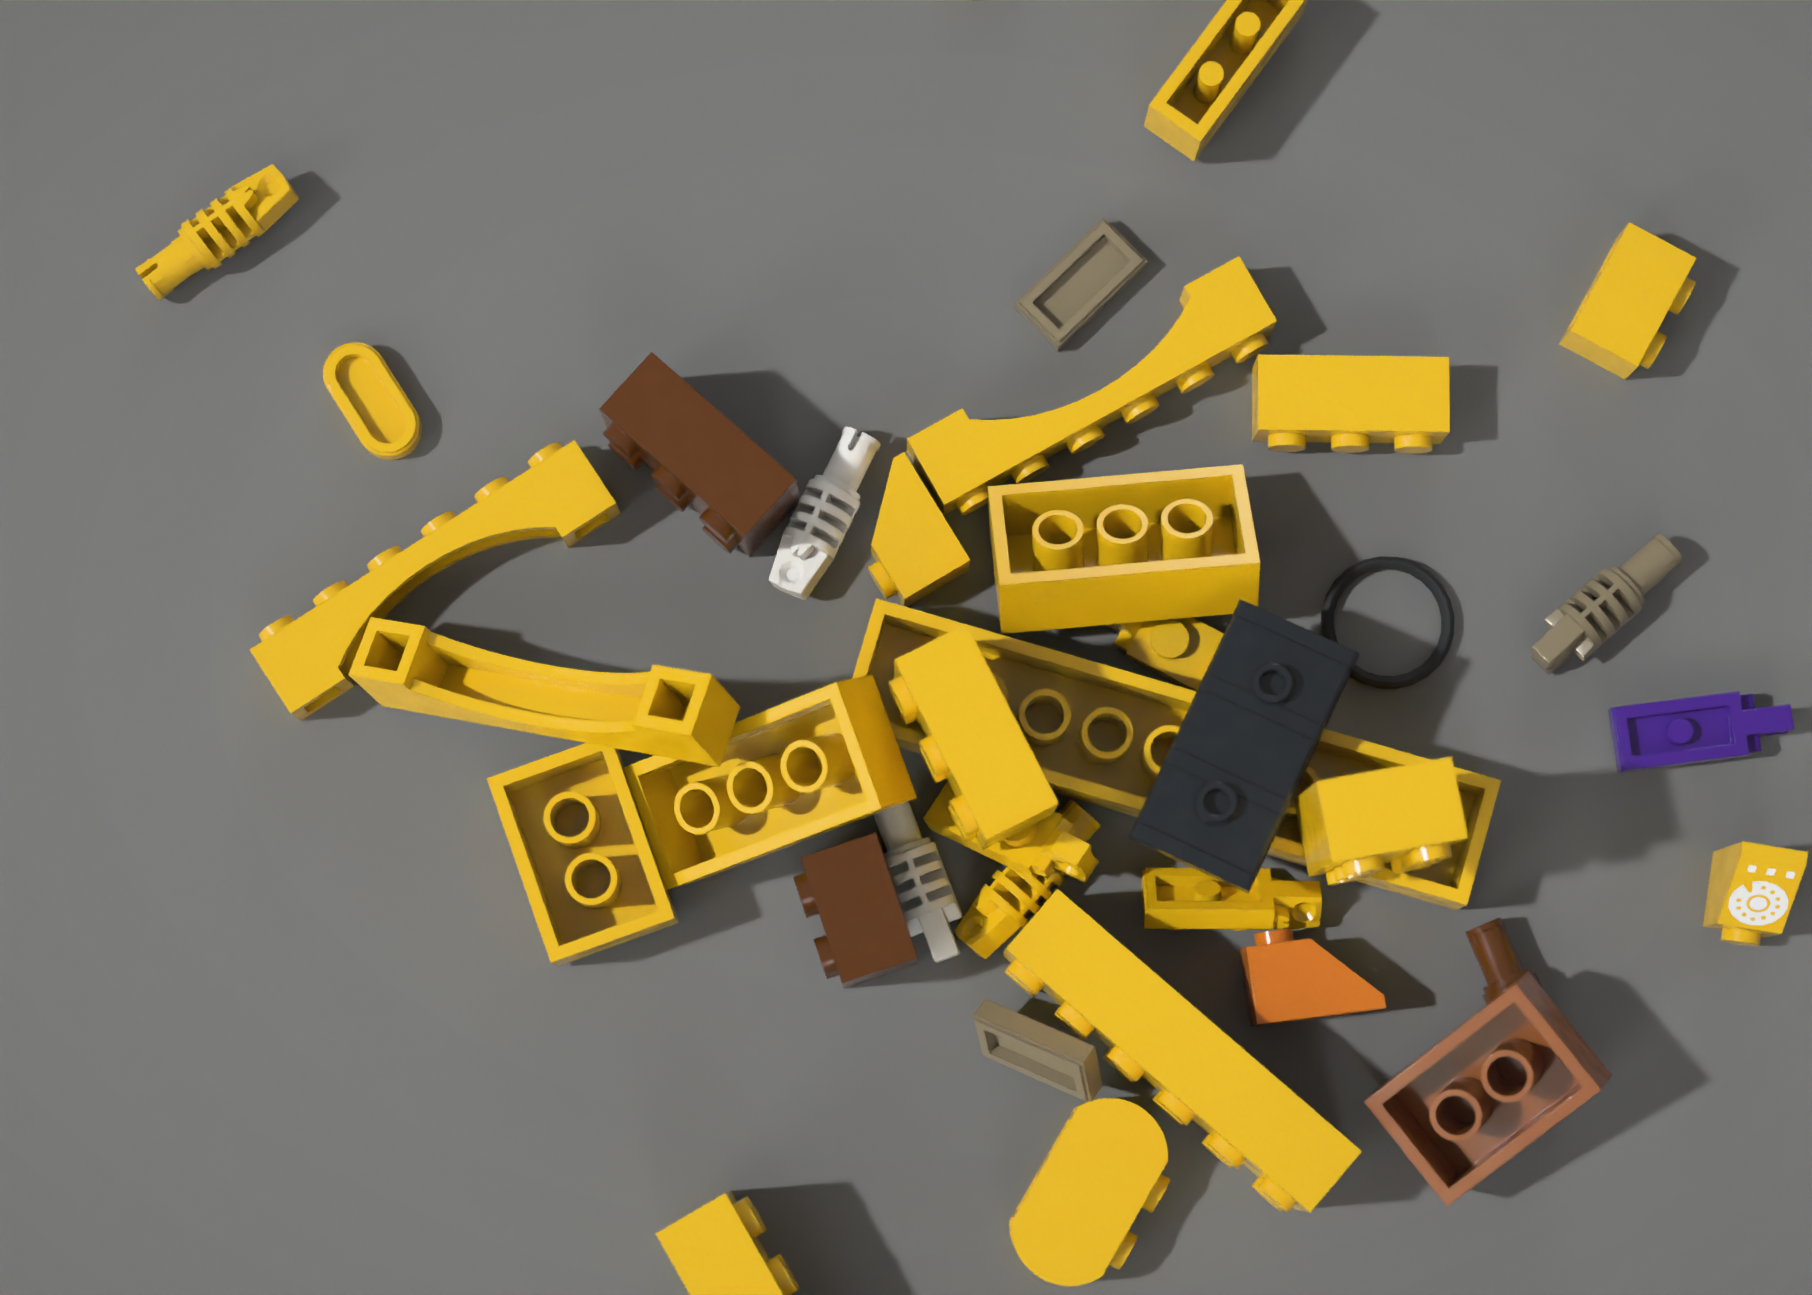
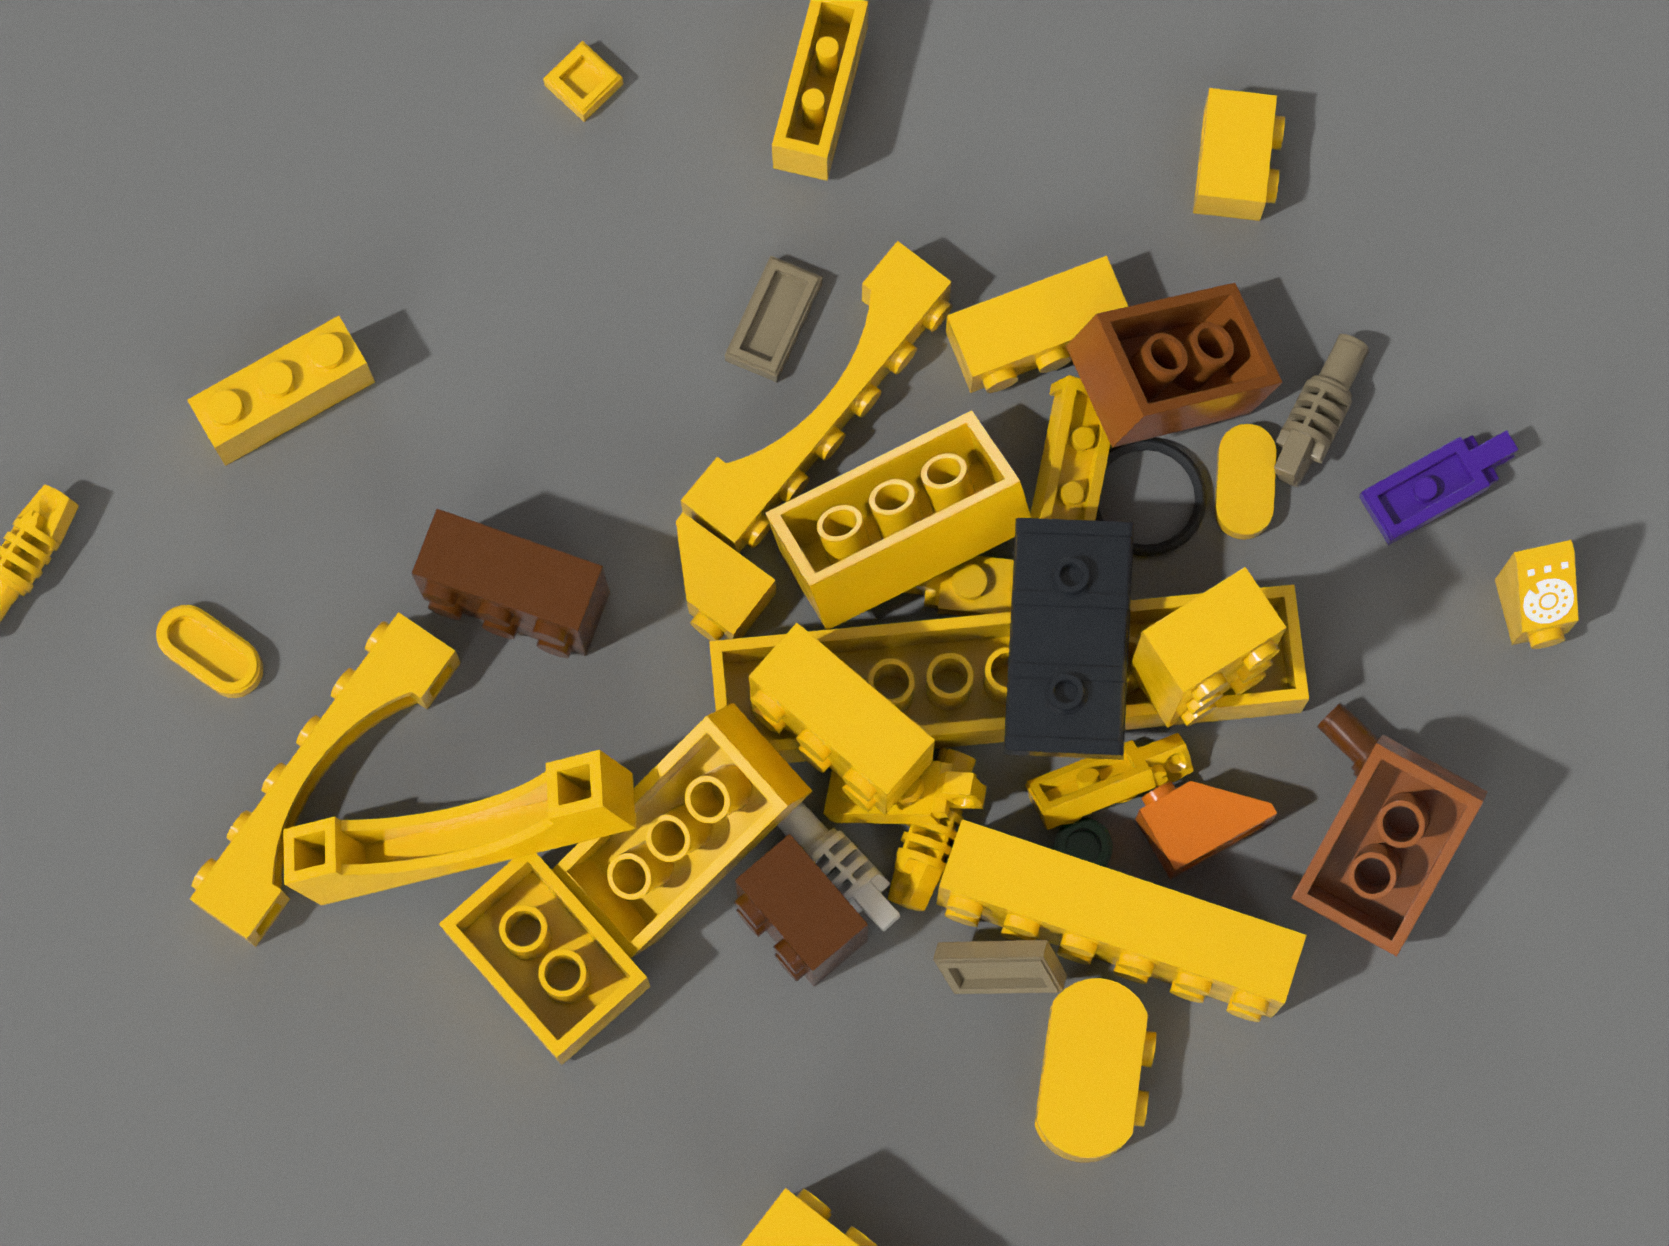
camera: 20 degrees left, 5 degrees down
(547, 162) = (281, 390): none -> yellow brick
(823, 516) = (635, 595): white hinge -> none
(1176, 957) = (1085, 840): none -> dark green tile
(1331, 550) = (1072, 456): none -> yellow container
(1471, 499) = (1173, 364): none -> dark orange brick
(1497, 647) = (1245, 481): none -> yellow tile

